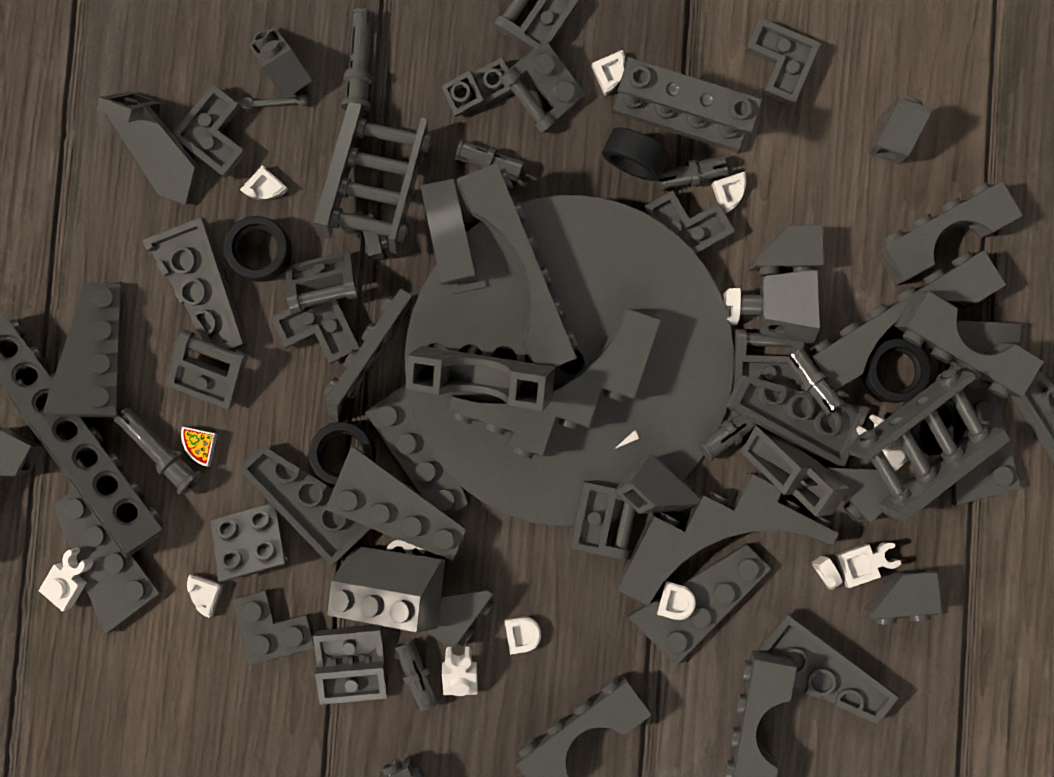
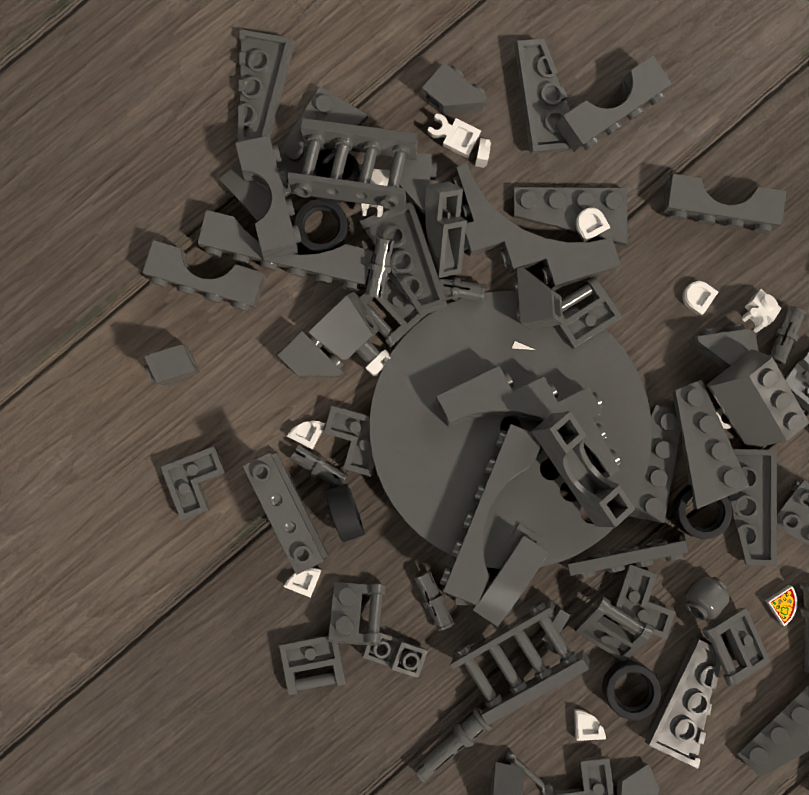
camera: 140 degrees left, 0 degrees up
(269, 385) = (707, 598): none -> dark grey head

